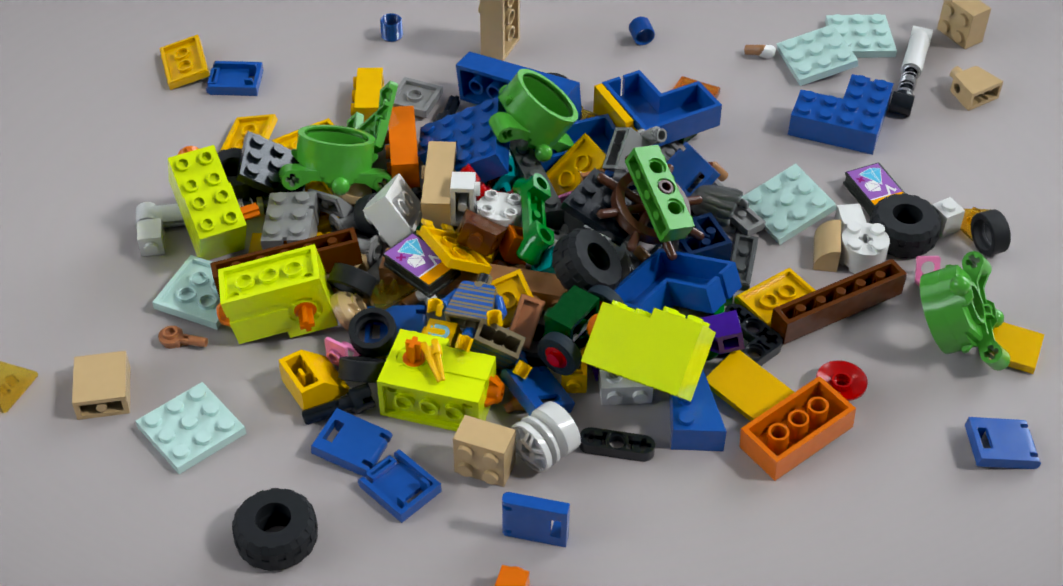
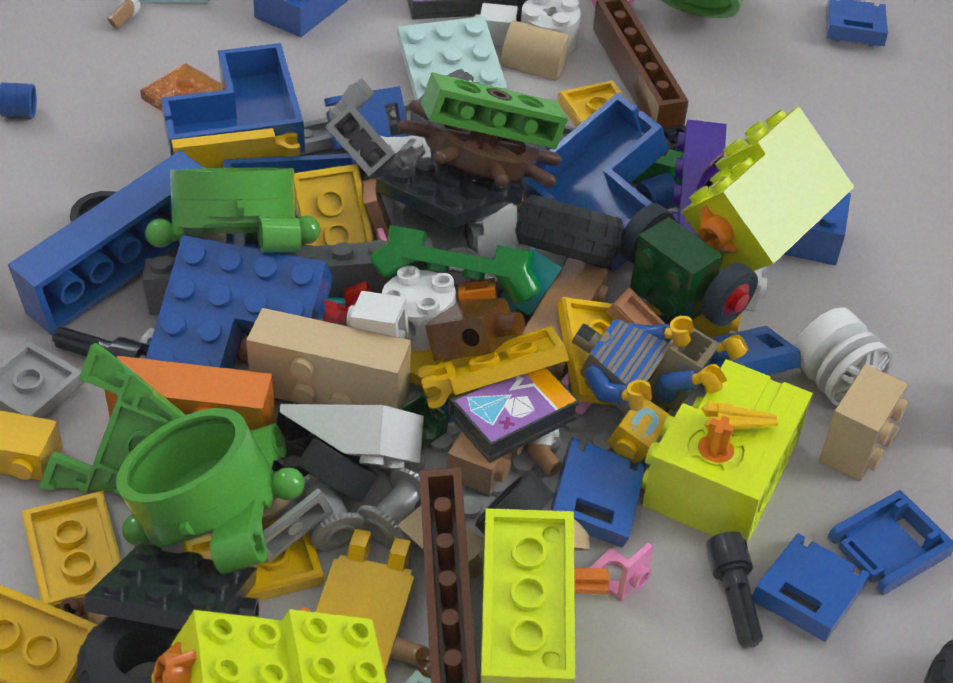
camera: 80 degrees left, 0 degrees up
(290, 218) = (330, 578): light grey piece -> none
(311, 378) = (688, 615): yellow slope -> none
(360, 369) = (695, 552): black tyre -> none
(369, 316) = (633, 488): black tyre -> none
(388, 295) = (550, 472): clear yellow piece -> none
(626, 438) = (830, 295): black beam -> none
(797, 427) = (849, 140): orange brick -> none
(844, 378) = (758, 97): red dish -> none

